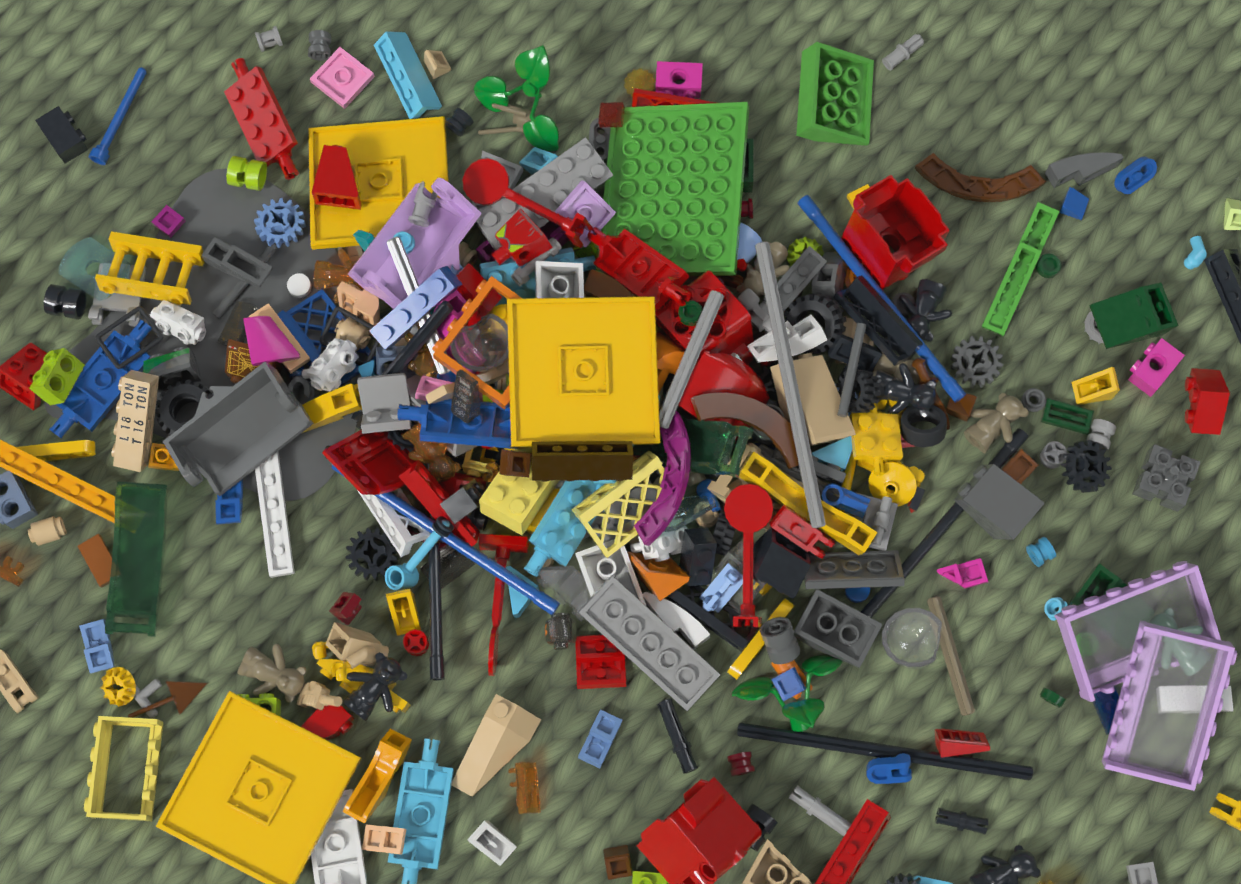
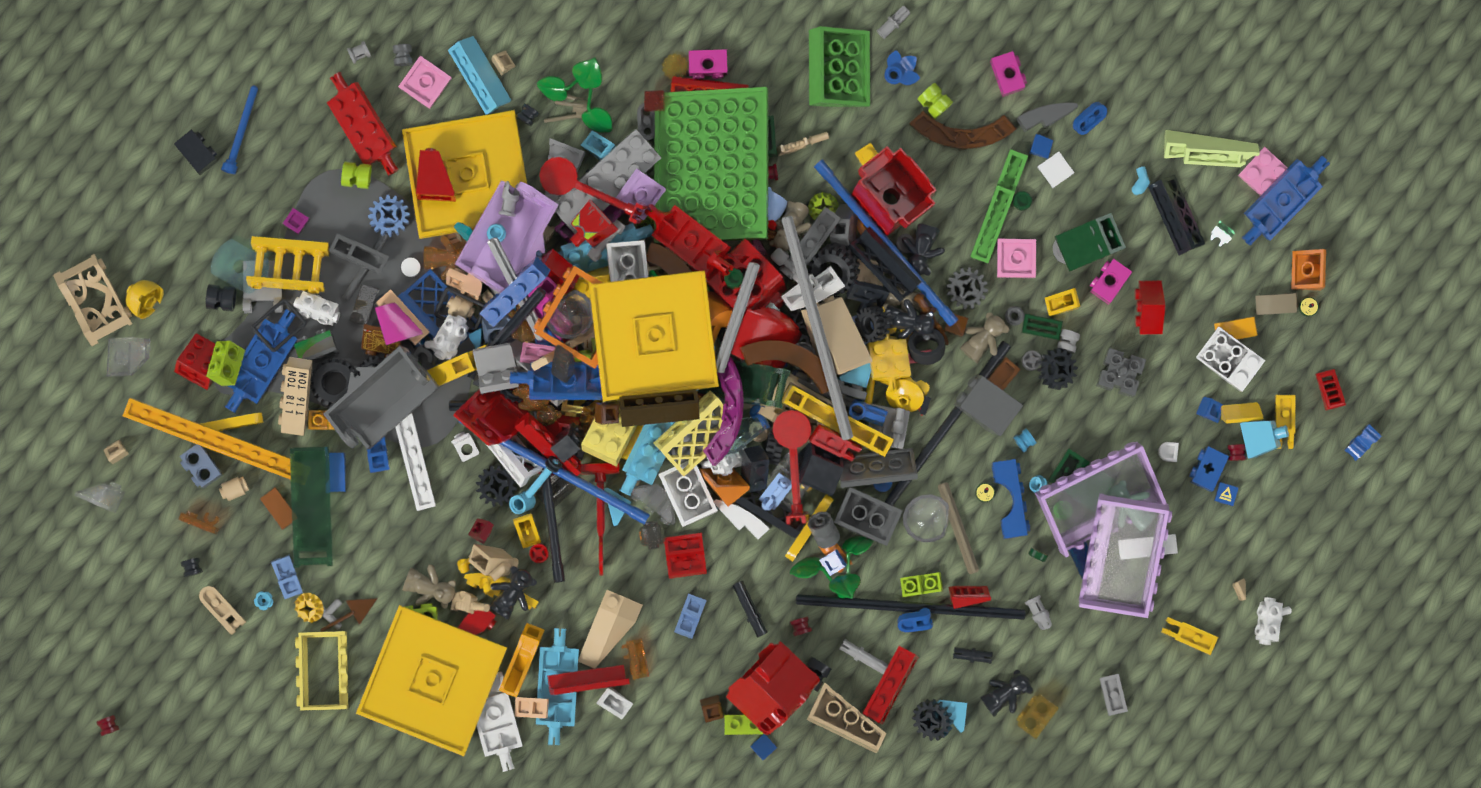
camera: 15 degrees left, 10 degrees up
(59, 668) = (263, 595): none -> medium azure plate
(177, 520) = (337, 472): none -> blue slope
(337, 493) = (462, 439): none -> white bracket
(459, 809) = (587, 680): none -> red fence
(649, 642) = (722, 540): light grey plate -> none
(772, 183) = (794, 146): none -> tan piece
(851, 370) = (865, 309): dark grey bar -> none
(900, 723) = (921, 584): none -> lime slope
(911, 103) = (903, 67): none -> blue plate
(948, 140) = (935, 100): none -> lime wheel
(965, 574) = (967, 462): dark pink slope -> none
(987, 613) = (985, 492): none -> light yellow tile
(1016, 592) = (1007, 474): none -> blue arch
(1038, 130) = (1008, 85): none -> dark pink brick
(1039, 331) = (1016, 258): none -> bright pink plate
(1052, 775) = (1039, 613): none -> light grey piece
(1090, 233) = (1055, 169): none -> white sticker
(1223, 582) = (1168, 451): none -> white tile

